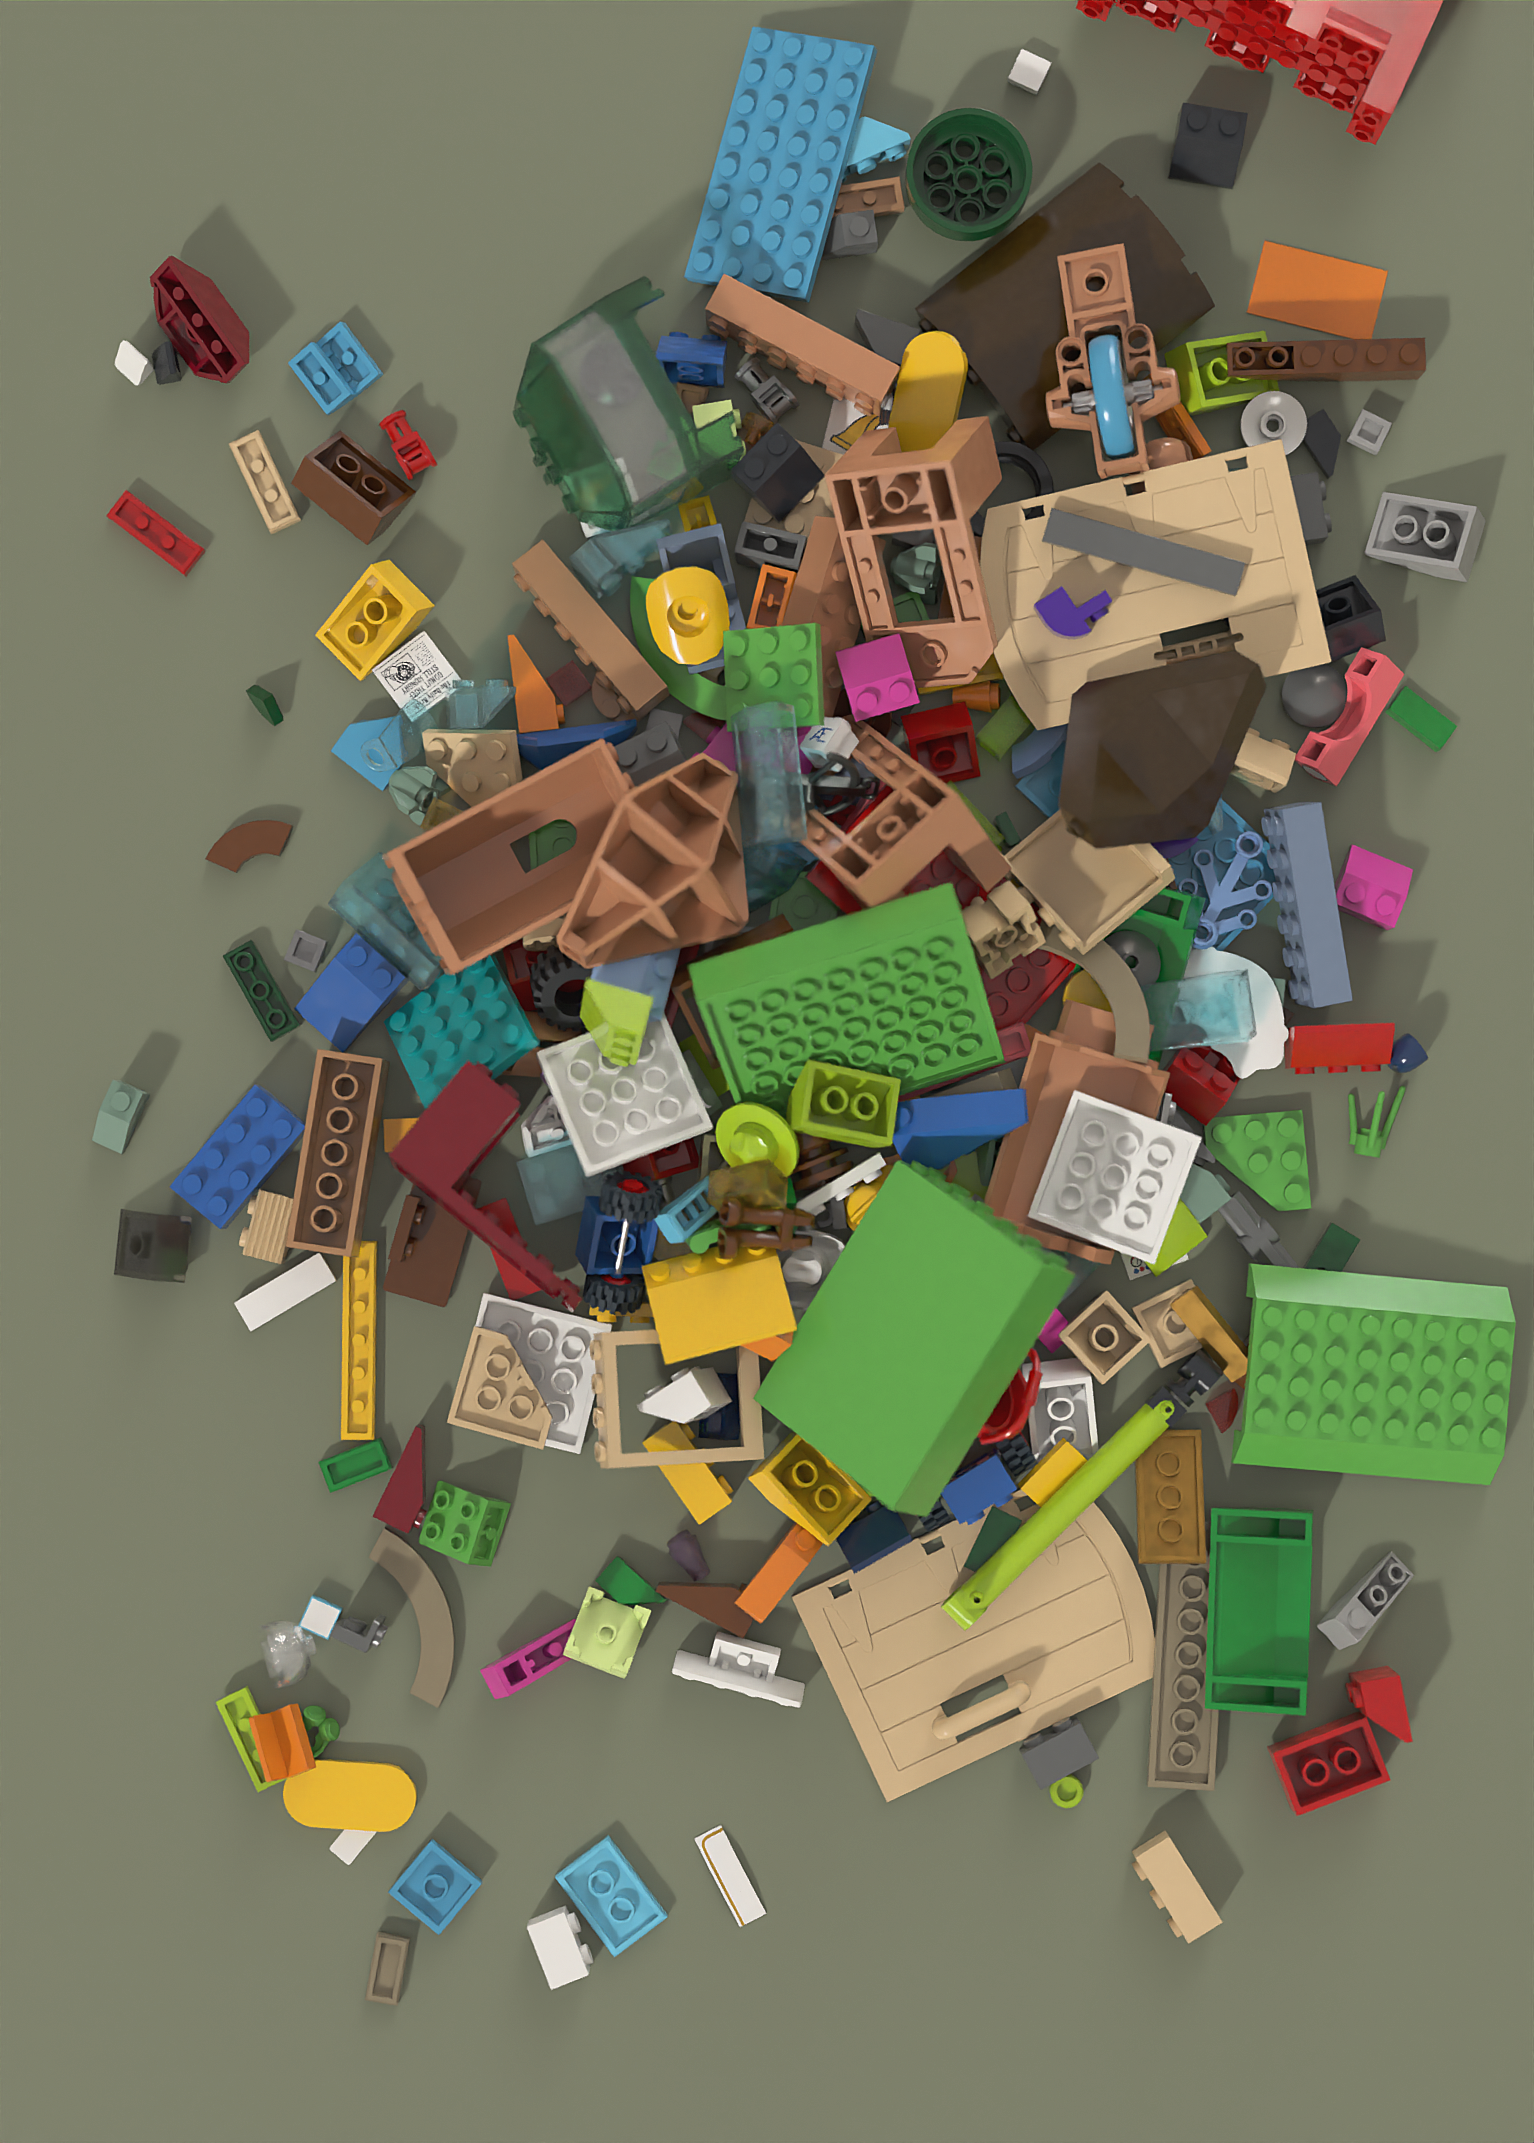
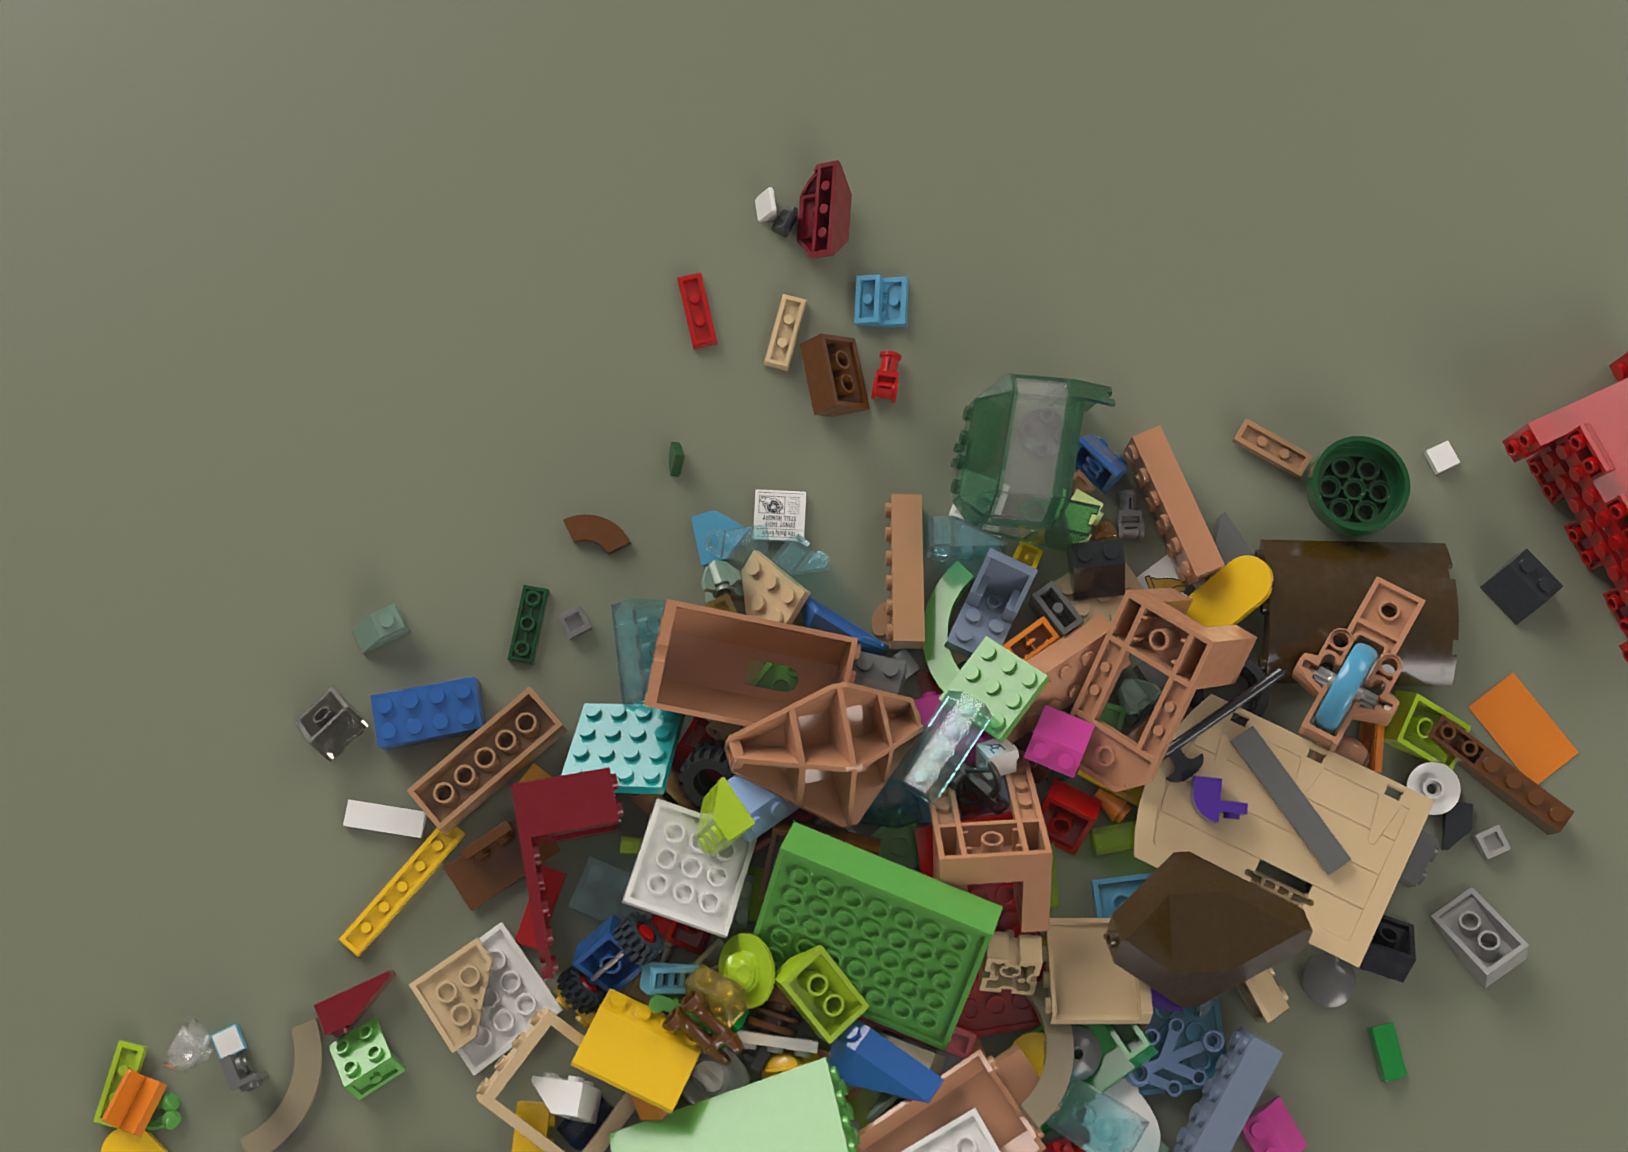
camera: 40 degrees right, 10 degrees down
(268, 1227) = (407, 770): tan brick -> none
(351, 992) = (580, 669): blue slope -> none
(355, 1465) = (333, 963): green tile -> none
(374, 618) = (782, 460): yellow slope -> none
(534, 700) = (837, 585): orange slope -> none
(544, 1129) = (623, 850): white slope -> none
(568, 683) = (866, 592): clear red plate -> none
(688, 614) = (973, 608): yellow hat -> none
(781, 162) = (1247, 391): dark azure plate -> none
(851, 235) = (1250, 464): dark grey slope -> none
(873, 144) = (1301, 420): medium azure slope -> none
(1006, 829) = (1065, 900): dark green tile -> none
(1019, 601) = (1188, 767): none -> black piece
(1036, 749) = (1124, 868): medium blue tile -> none
(1369, 687) = (1369, 1004): coral arch -> none

